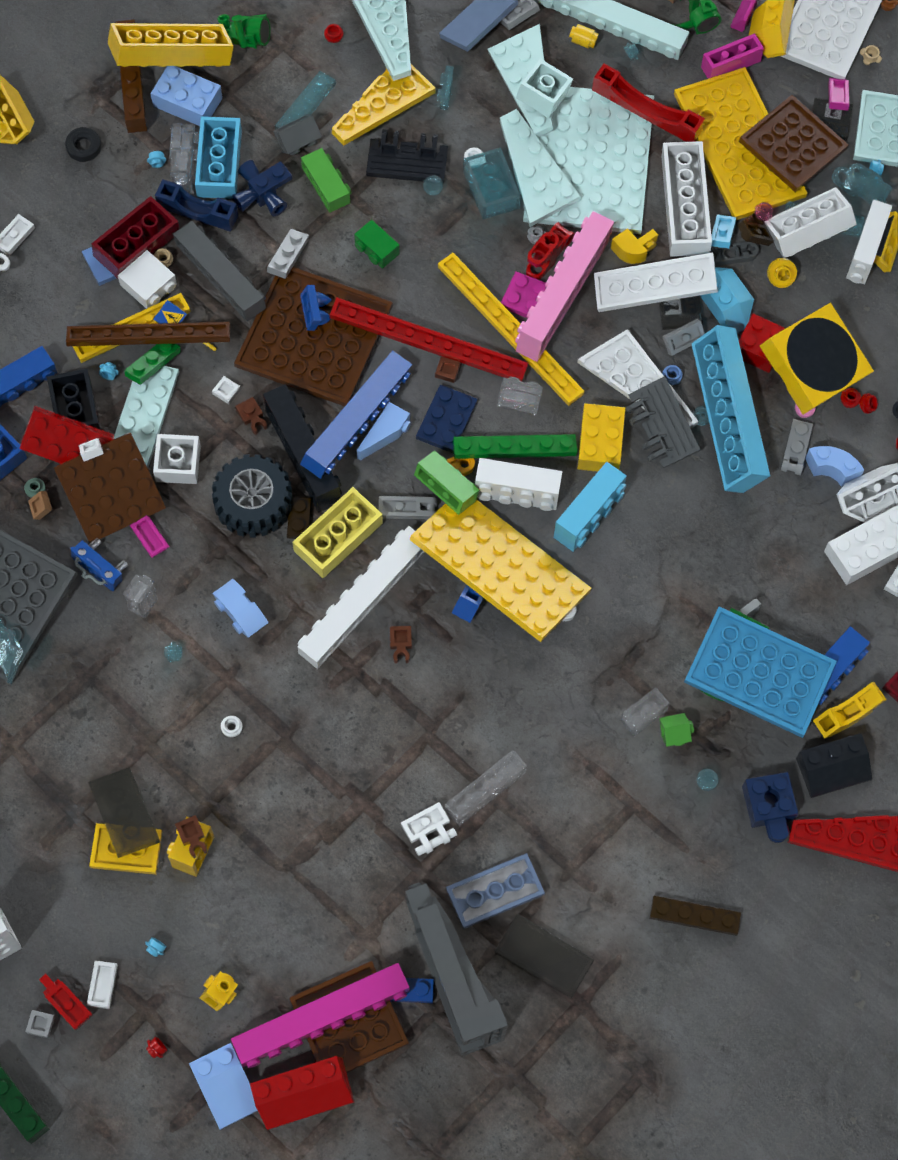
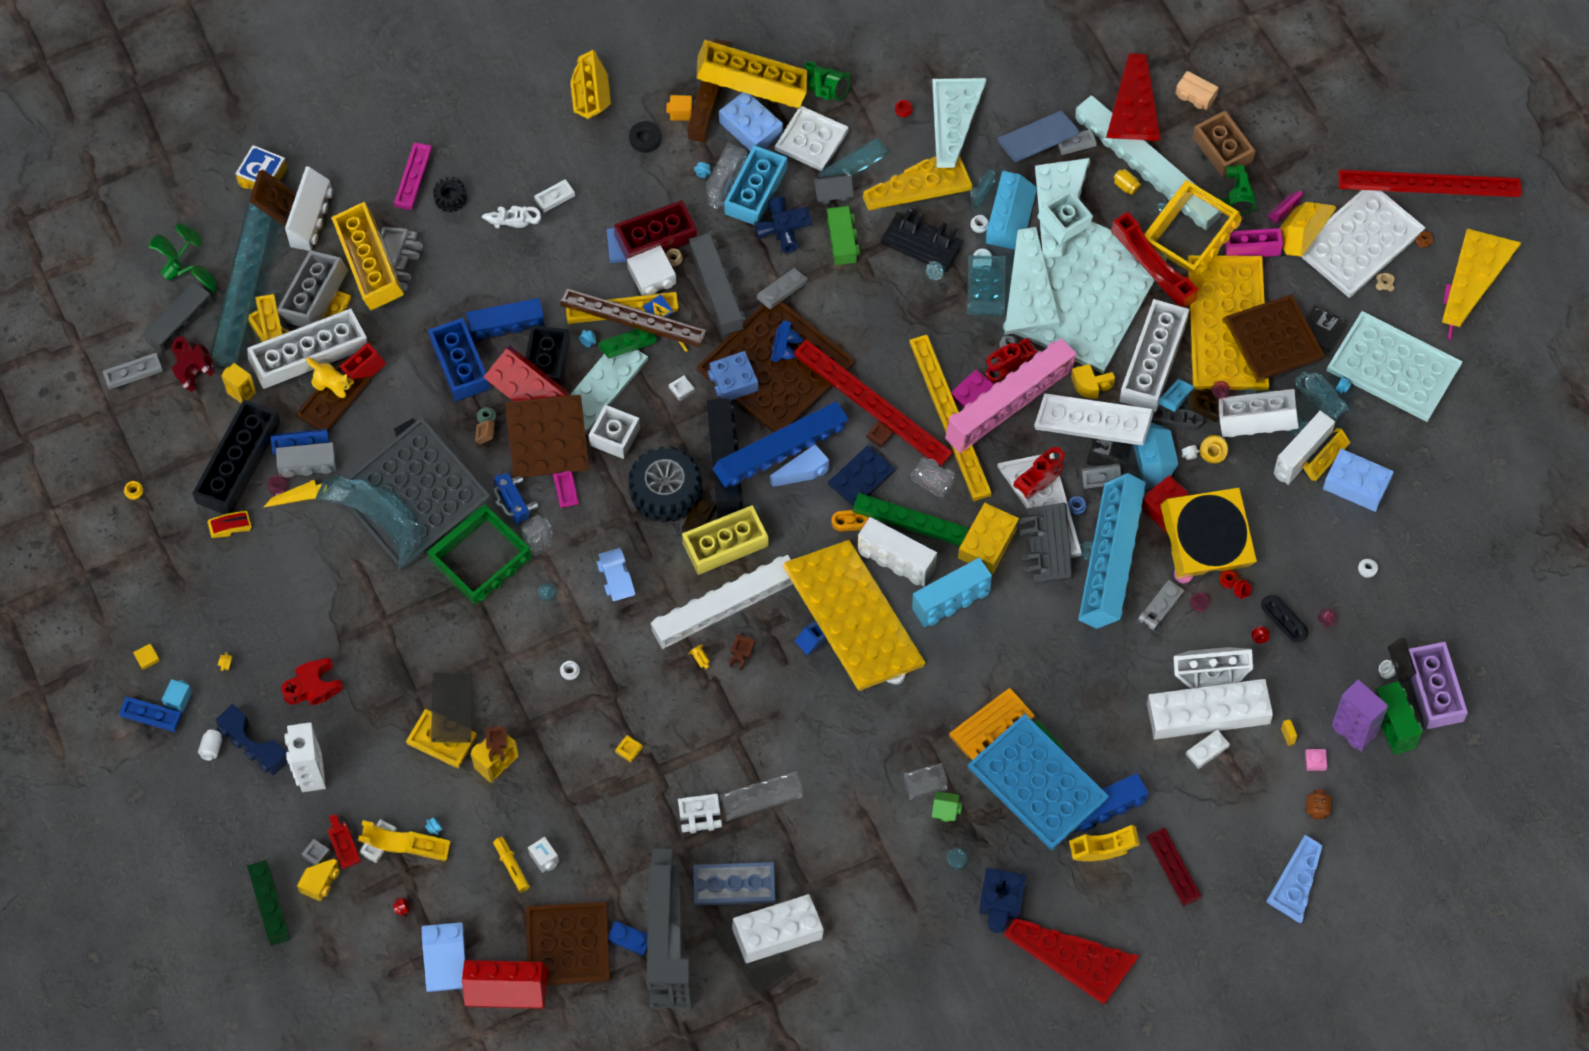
camera: 25 degrees right, 5 degrees down
(53, 1052) = (317, 879): none -> yellow slope
(58, 620) = (460, 533): none -> green window
(90, 449) = (542, 397): white tile -> none
(107, 103) = (679, 107): none -> light orange brick
(132, 976) = (404, 842): none -> yellow piece
(217, 213) = (704, 210): dark blue arch -> none
(219, 990) = (470, 879): yellow brick -> none
(251, 413) = (694, 415): copper plate -> none
(252, 955) = (511, 864): none -> yellow axle
(254, 92) = (811, 138): none -> white plate
(277, 360) = (733, 376): none -> medium blue brick
(285, 935) = (543, 855): none -> white brick
(320, 1015) = (544, 928): dark pink brick -> none
(326, 787) = (629, 748): none -> yellow tile
(361, 663) = (700, 656): none -> yellow piece
(376, 244) = (863, 306): green brick -> none
(406, 507) = (793, 539): light grey plate -> none
(446, 482) = (835, 528): bright green brick -> none
(457, 119) = (979, 219): none -> white plate
(482, 101) = (1010, 210): none -> medium azure slope
(561, 923) = (777, 928): none -> white brick
(629, 354) = (1041, 473): none -> red piece
(654, 21) = (1170, 212): none -> yellow window
(682, 629) = (989, 723): none -> light orange hinge
(695, 915) = (896, 966): dark brown plate -> none
(751, 608) = (1057, 728): light grey tile -> none
(759, 284) = (1190, 452): none -> white plate
(832, 431) = (1199, 602): none -> clear pink plate
(833, 463) = (1186, 629): light blue brick -> none
(835, 765) = (1073, 886): black slope -> none
(838, 94) = (1338, 307): dark pink tile -> none

